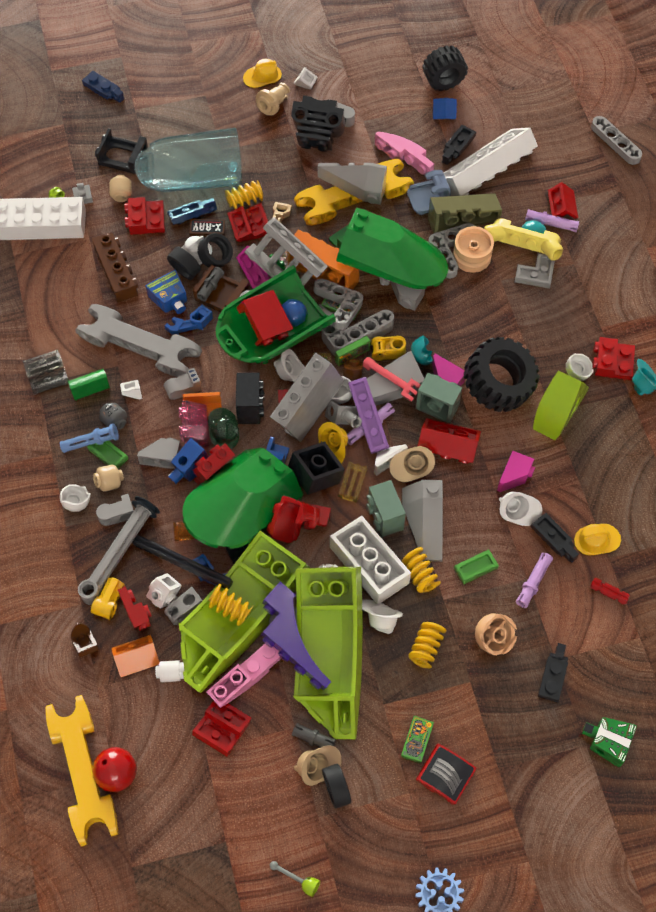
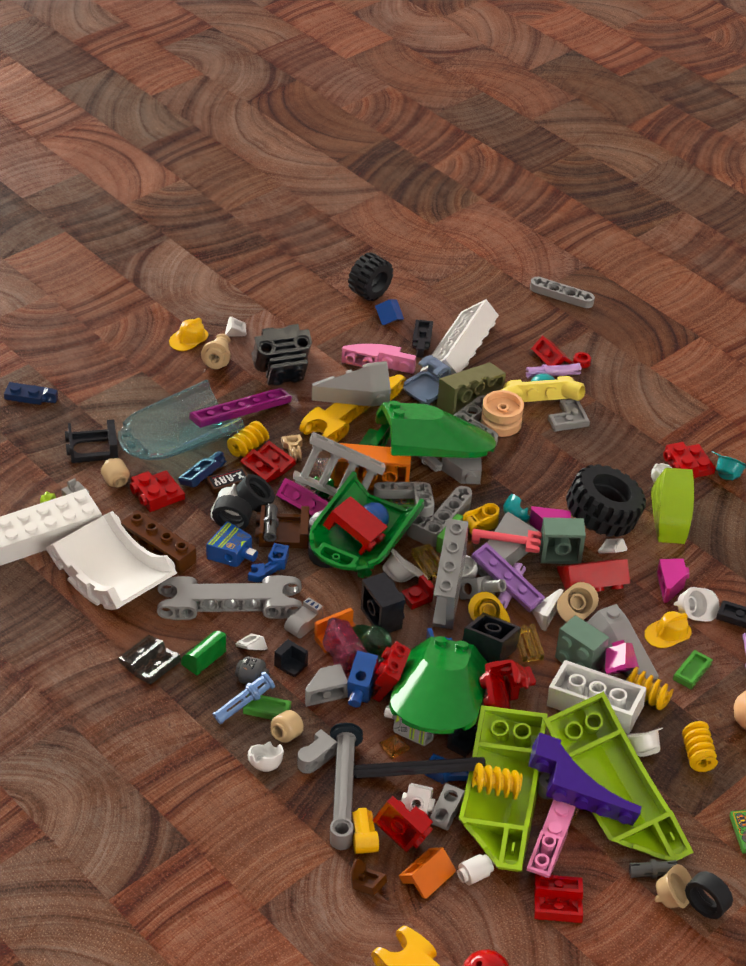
camera: 30 degrees left, 20 degrees down
(62, 272) = (109, 563): none -> white panel
(150, 417) = (291, 658): none -> black panel
(255, 162) = (240, 407): none -> magenta tile
(410, 534) = (620, 658): none -> dark pink slope
(480, 521) = (668, 630): none -> yellow piece
(486, 419) = (613, 546): none -> white slope
(587, 218) = (582, 358): none -> red tile

